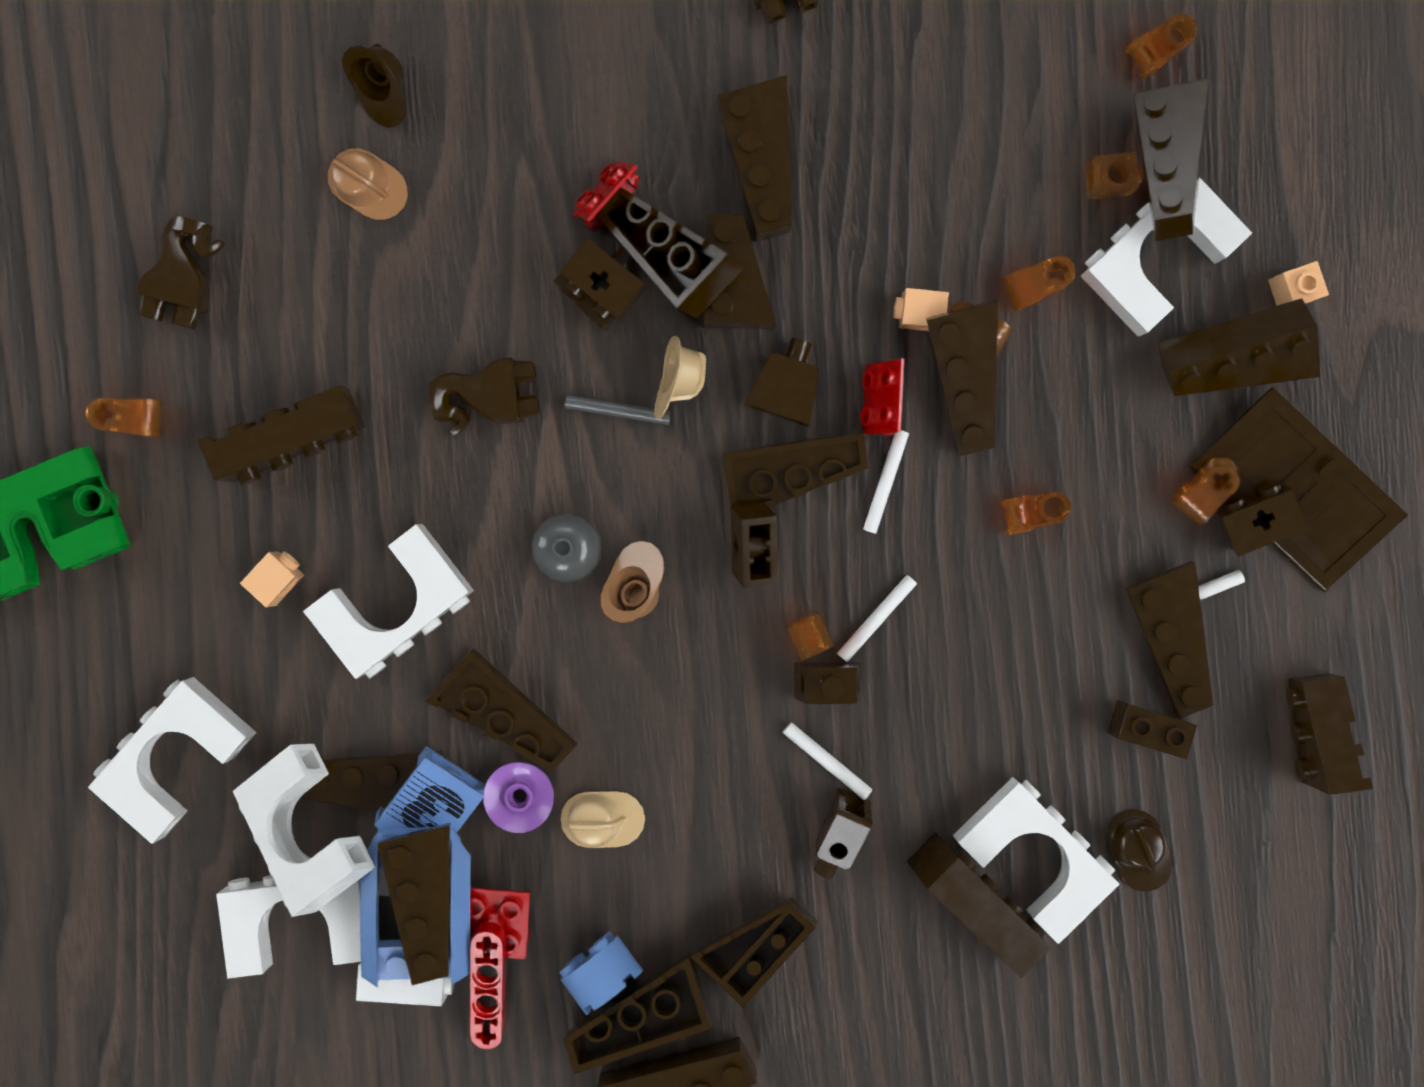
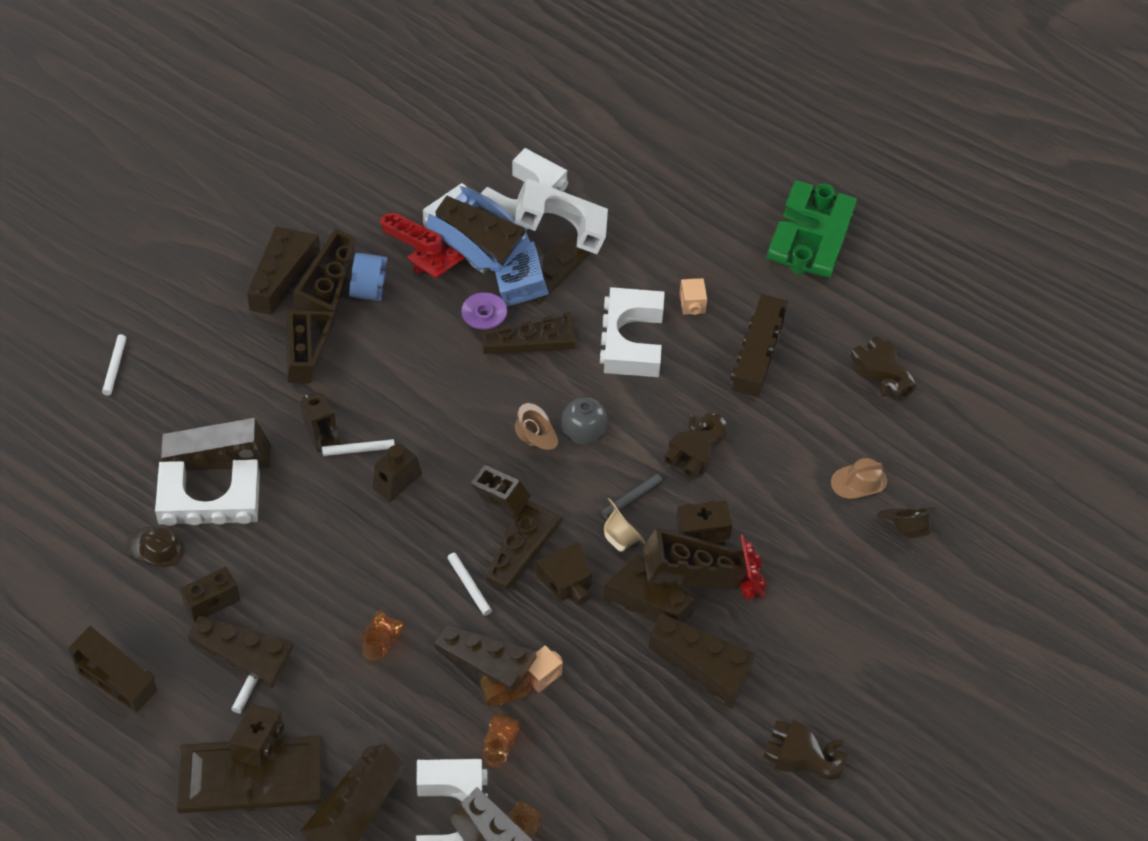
camera: 130 degrees right, 35 degrees down
(127, 779) = (656, 181): white arch -> none
(129, 416) = (831, 298): clear orange piece -> none
(602, 819) = (435, 337): tan piece -> none
(809, 636) = (428, 483): clear orange brick -> none
(877, 618) = (404, 524): white bar -> none
(883, 397) = (514, 612): red hinge -> none
(1202, 494) = (300, 724): clear orange piece -> none

